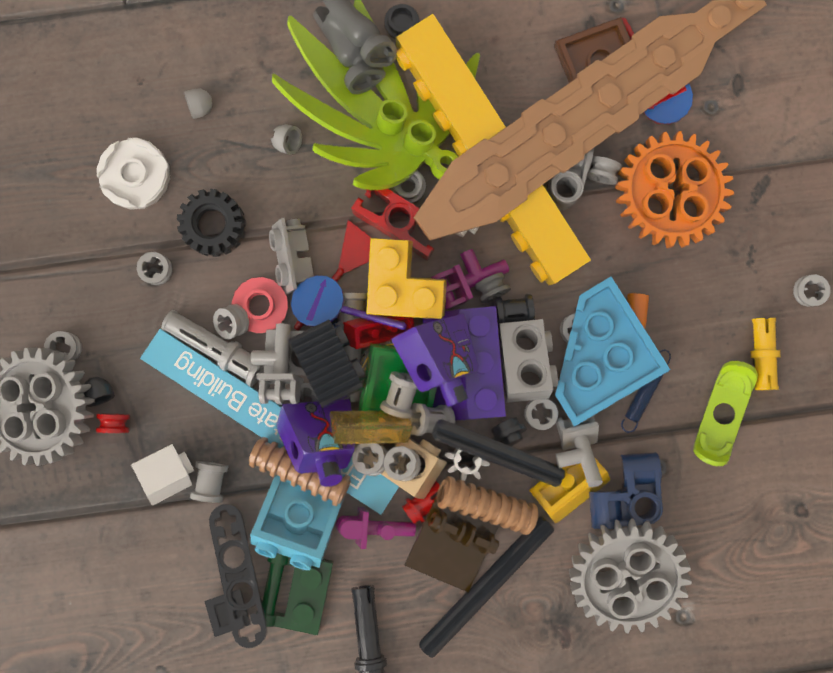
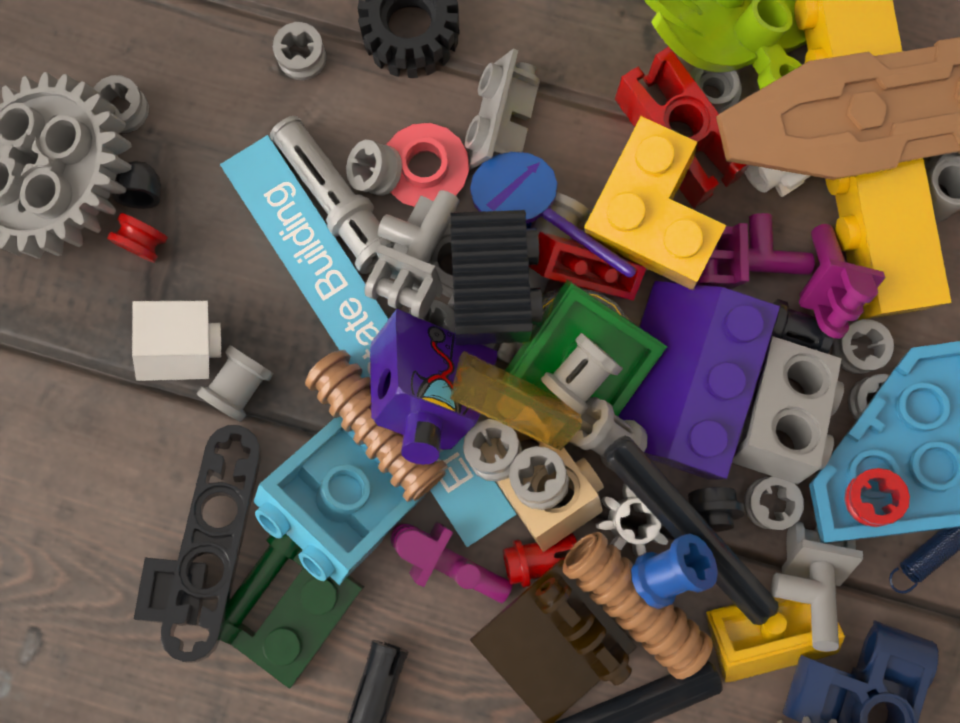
camera: 30 degrees right, 5 degrees down
(353, 255) = (595, 149): red piece -> none
(439, 356) = (666, 337): dark purple torso -> none
(492, 287) = (778, 281): dark grey bush -> none
(501, 475) = (681, 568): none -> blue bush
(524, 280) = (837, 287): none -> magenta arm
(562, 310) = (882, 344): none -> light grey bush
(595, 380) = (888, 483): none -> red bush

